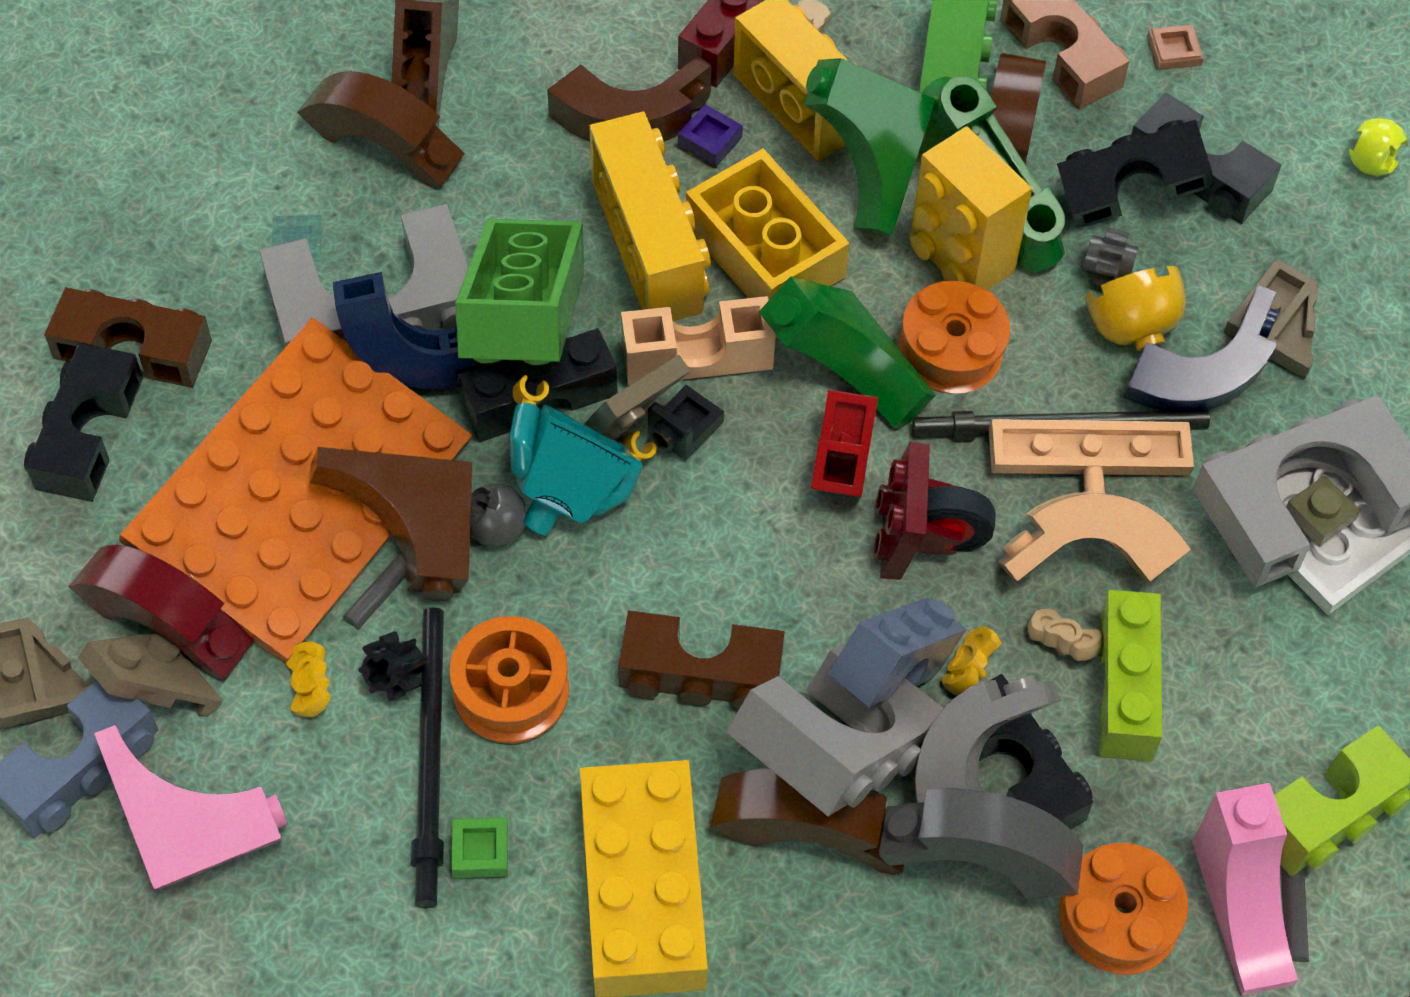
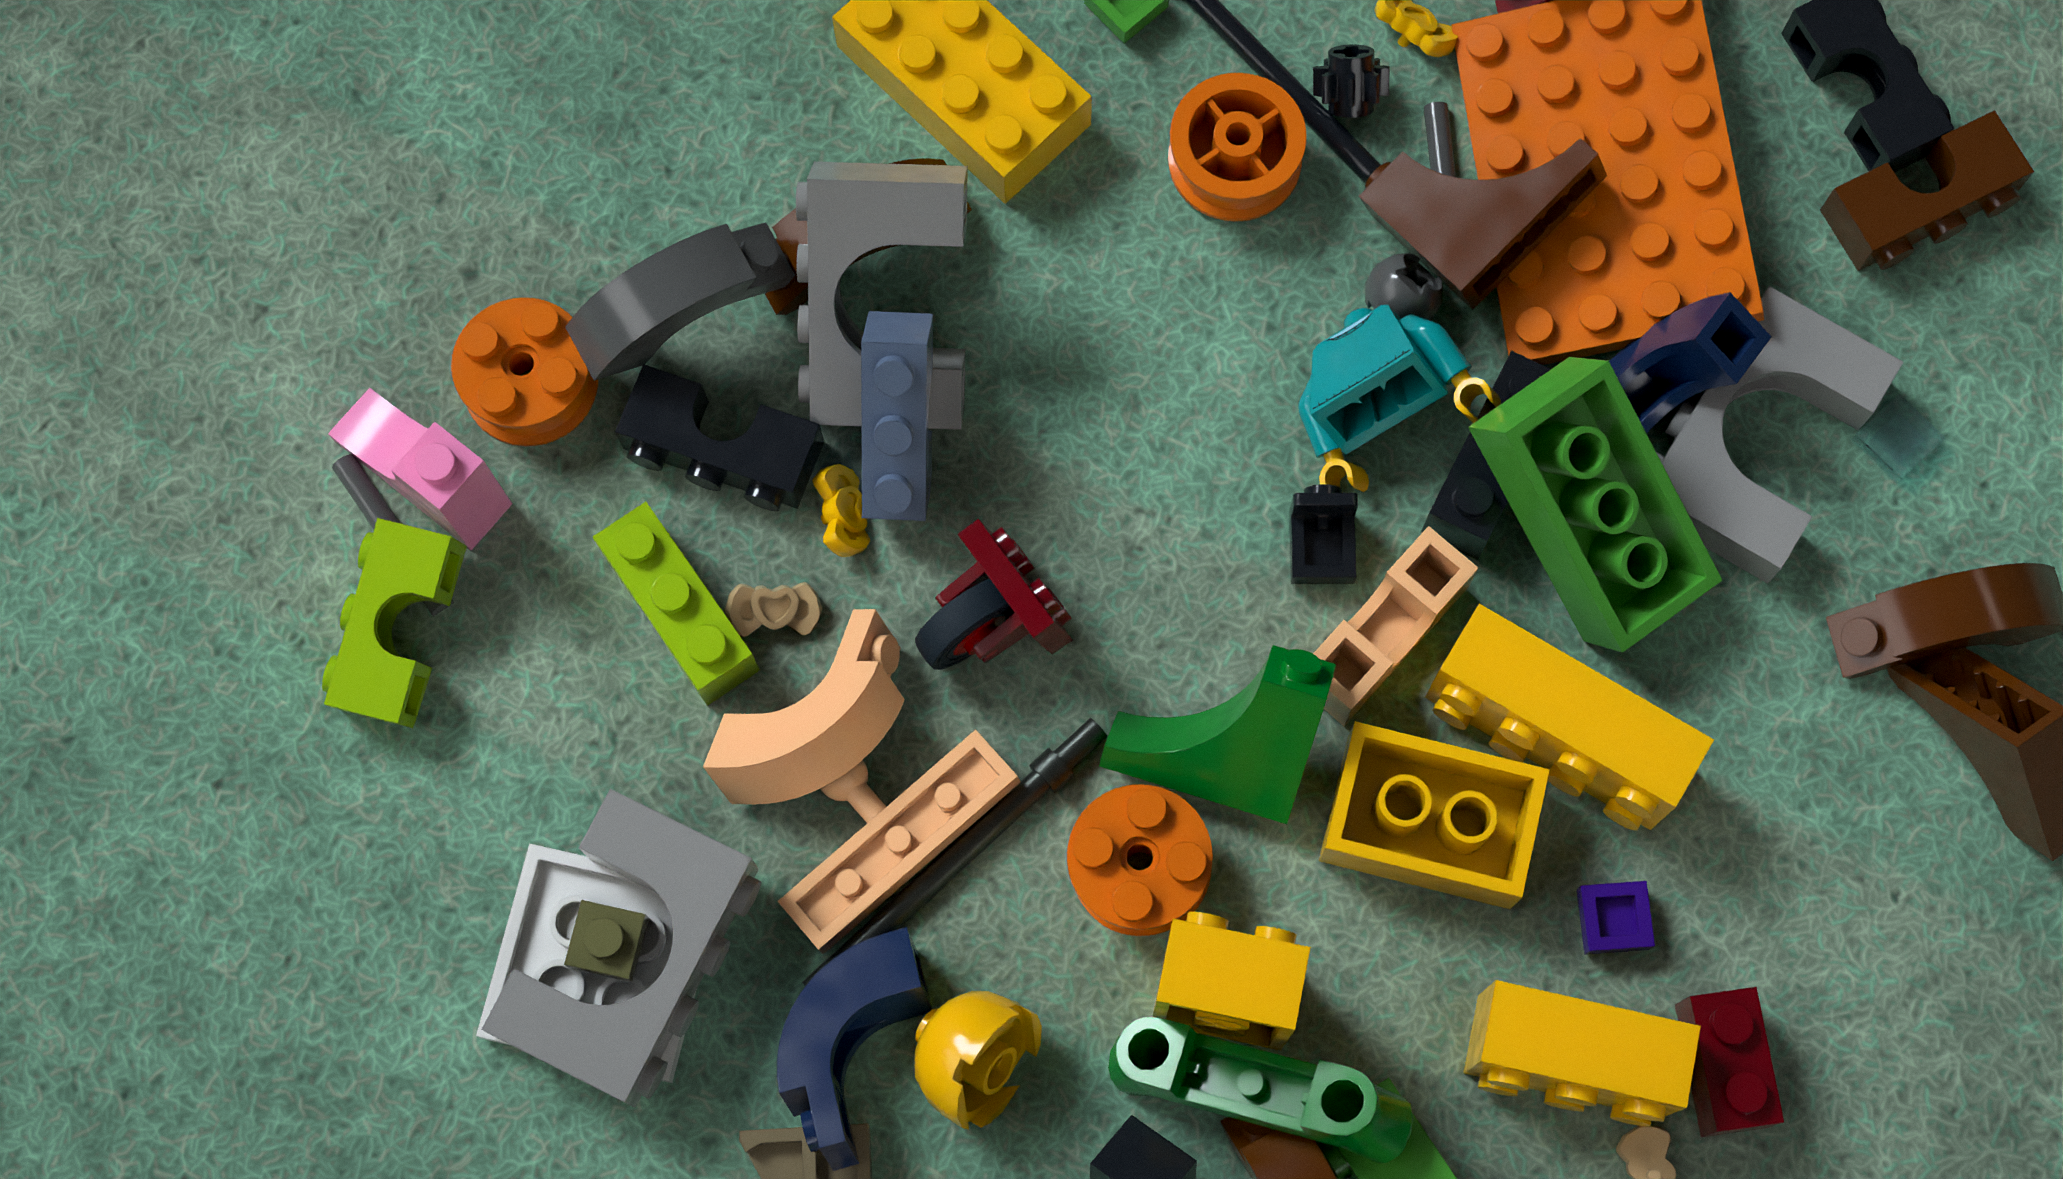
camera: 145 degrees right, 15 degrees up
(586, 100) = (1756, 837): reddish brown arch -> none
(628, 405) = (1381, 480): dark tan wing -> none
(657, 663) = (1125, 272): reddish brown arch -> none
(844, 443) = (1135, 620): red brick -> none
(881, 129) = (1424, 1018): green arch -> none
(961, 729) = (768, 401): light grey arch -> none
(1109, 256) = (1053, 1105): dark grey gear -> none

